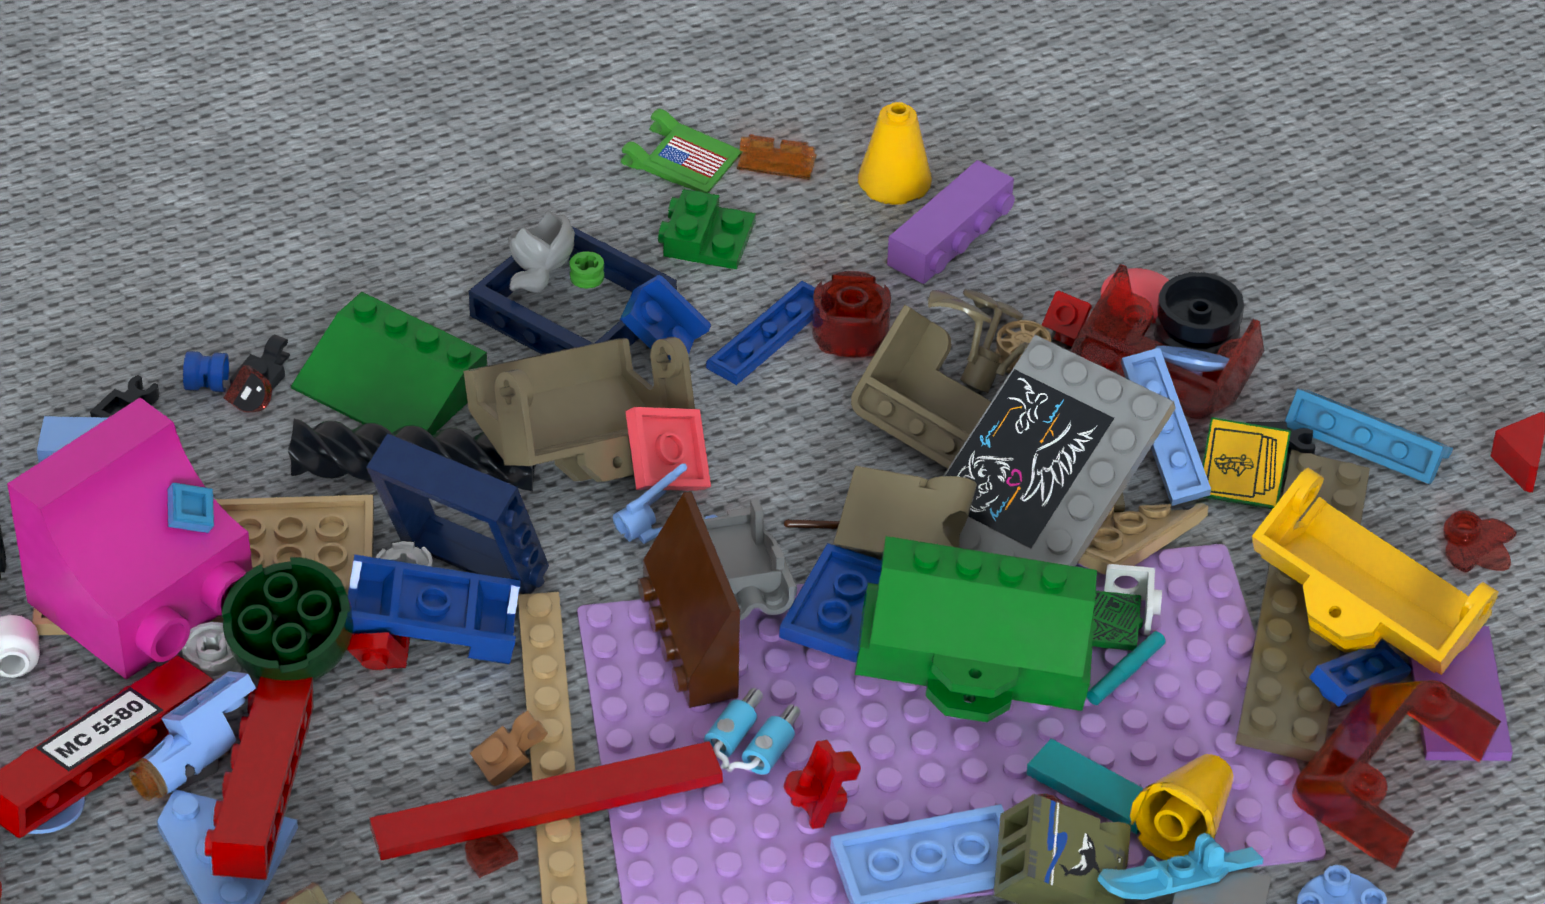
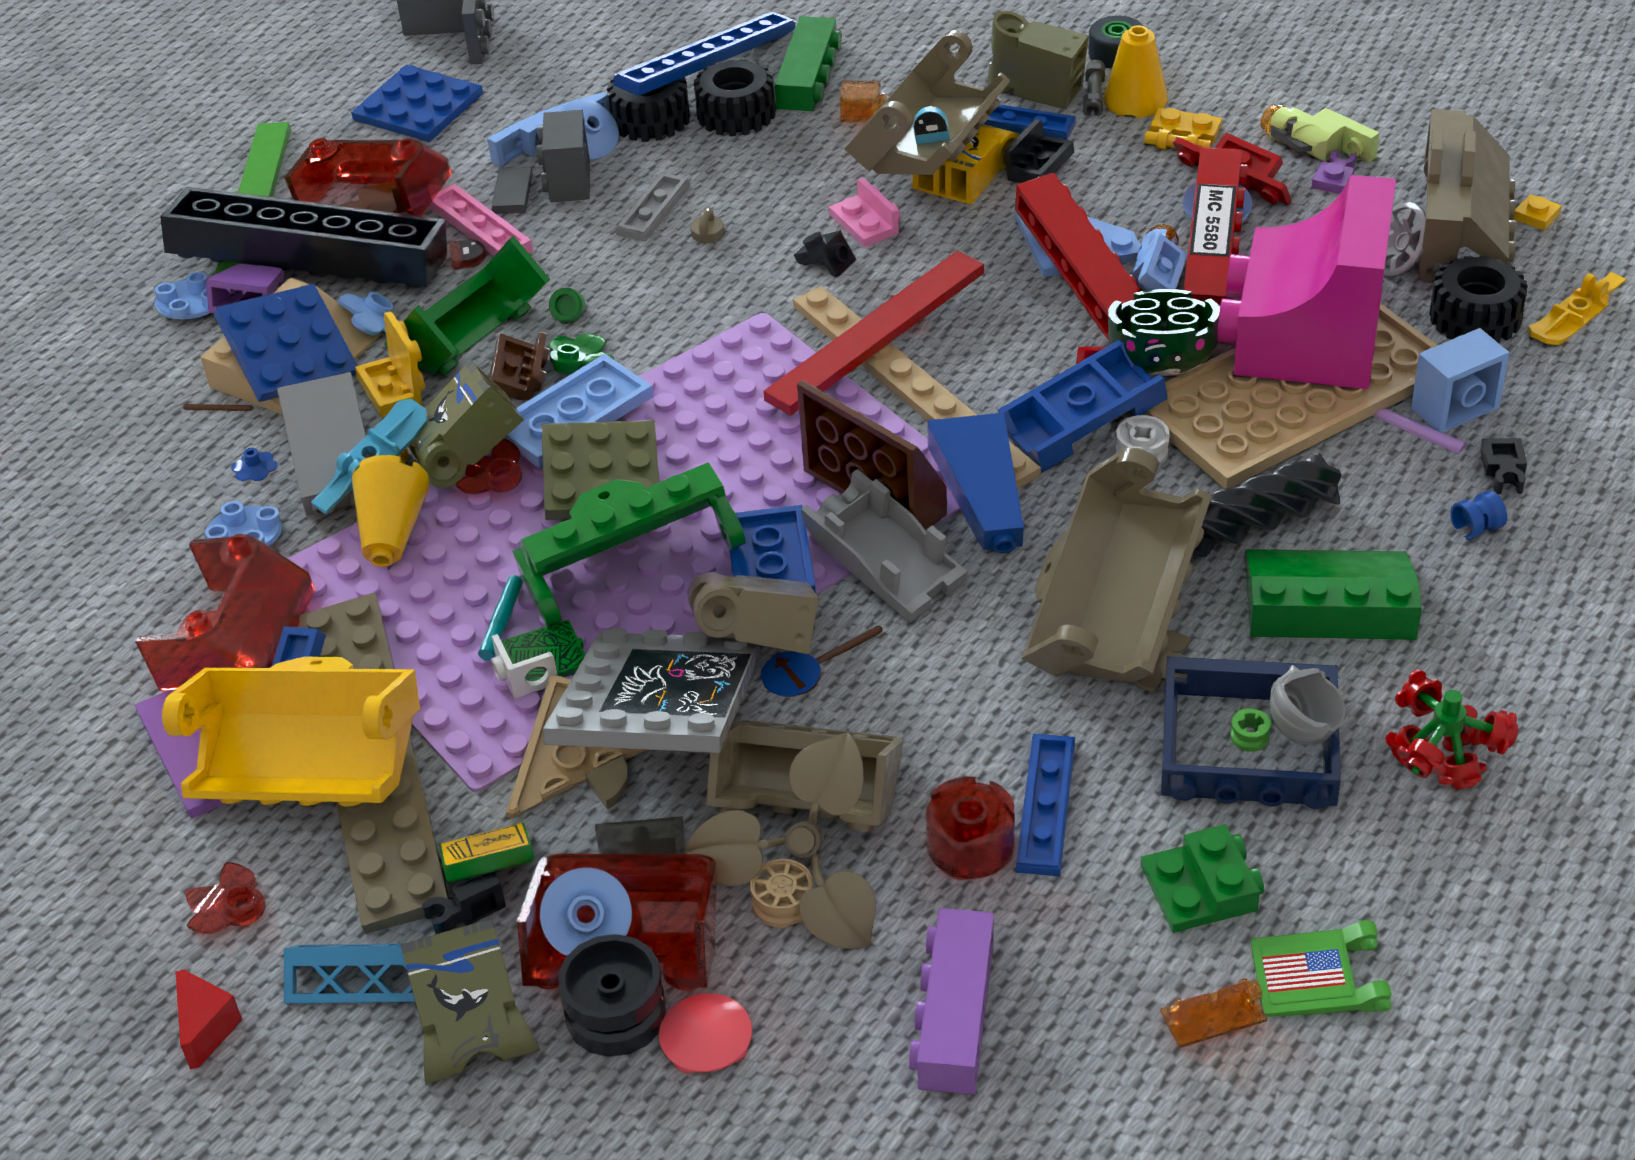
camera: 155 degrees right, 0 degrees up
(190, 507) = (1285, 285): dark azure tile -> none
(249, 391) = (1422, 517): tile -> none
(270, 362) = (1442, 545): black plate -> none
(411, 475) = (1163, 349): dark blue window -> none
(449, 214) = (1456, 724): none -> red plant
(504, 751) = (941, 358): medium nougat plate -> none
(589, 581) = (981, 476): none -> blue slope
(637, 516) = (1000, 566): light blue plant -> none
(662, 312) = (1135, 722): blue bracket -> none
(662, 442) = (1016, 598): coral plate -> none
(766, 745) = (784, 433): medium azure piece -> none
(819, 784) = (679, 401): red hips -> none
(895, 159) = (1073, 1047): yellow cone -> none
(945, 762) = (593, 454): none -> olive plate
(1066, 317) = (749, 930): red bracket -> none
(1085, 782) = (478, 517): teal tile -> none
(1174, 447) = (576, 825): light blue plate -> none
(1314, 355) = (464, 1000): none -> olive piece

